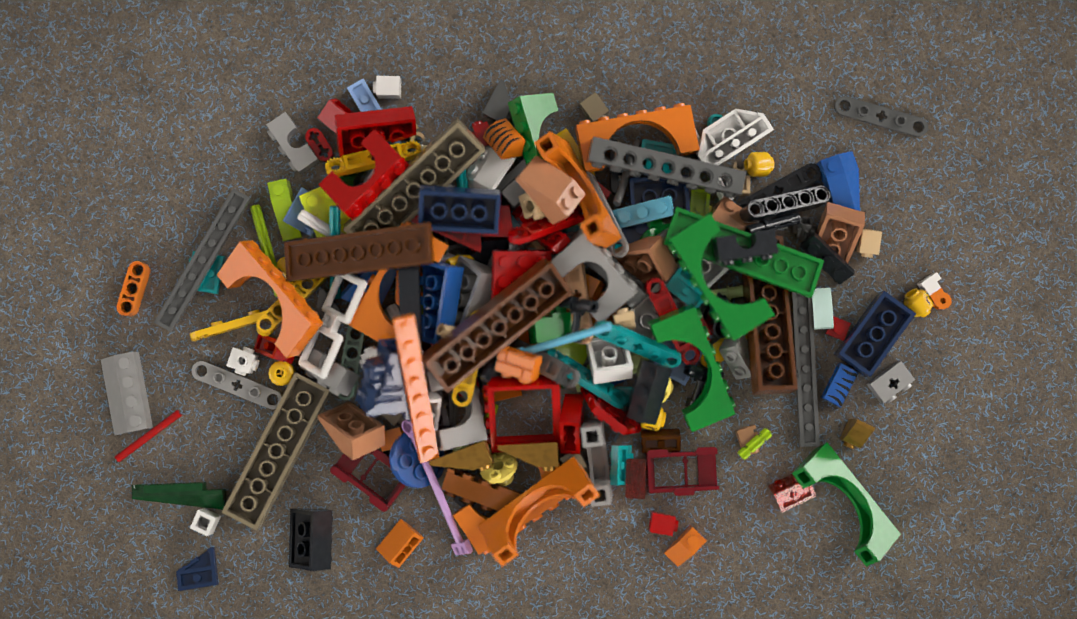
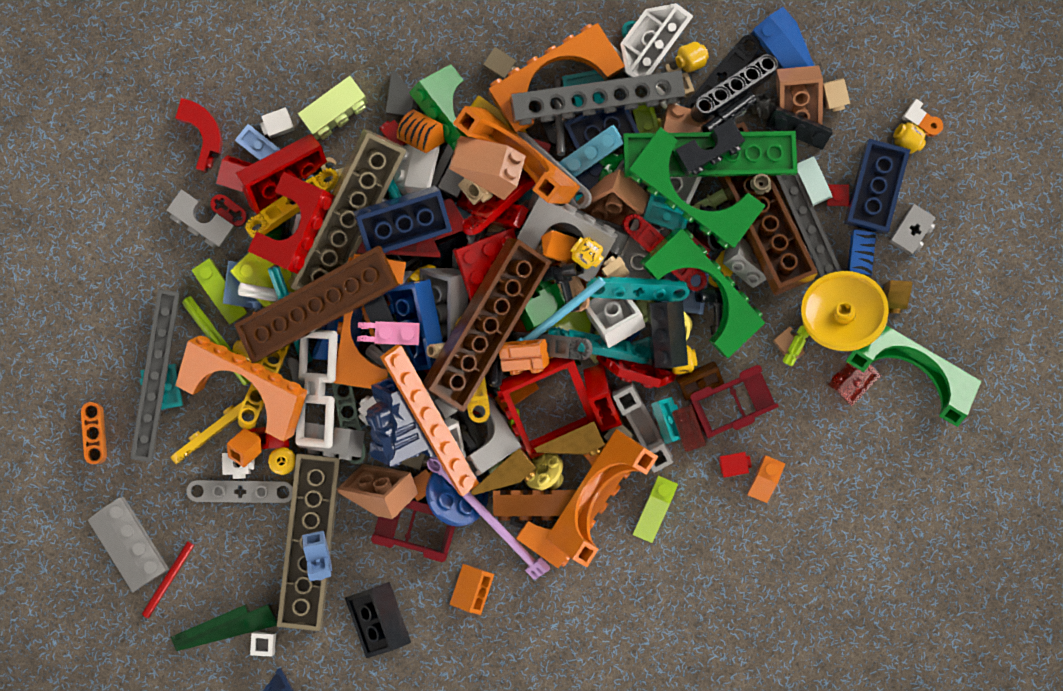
camera: 25 degrees left, 0 degrees up
(252, 350) = (244, 447): none -> orange brick
(277, 466) = (317, 556): none -> medium blue brick
(329, 70) = (196, 115): none -> red arch
(413, 301) = (391, 333): none -> bright pink hinge
(439, 92) = (333, 108): none -> yellowish green brick
(581, 535) = (655, 509): none -> lime slope
(585, 282) = (558, 246): none -> orange slope
(606, 297) = (587, 252): none -> yellow head
(782, 294) = (761, 178): none -> dark tan plate
(807, 430) = (844, 311): none -> yellow dish

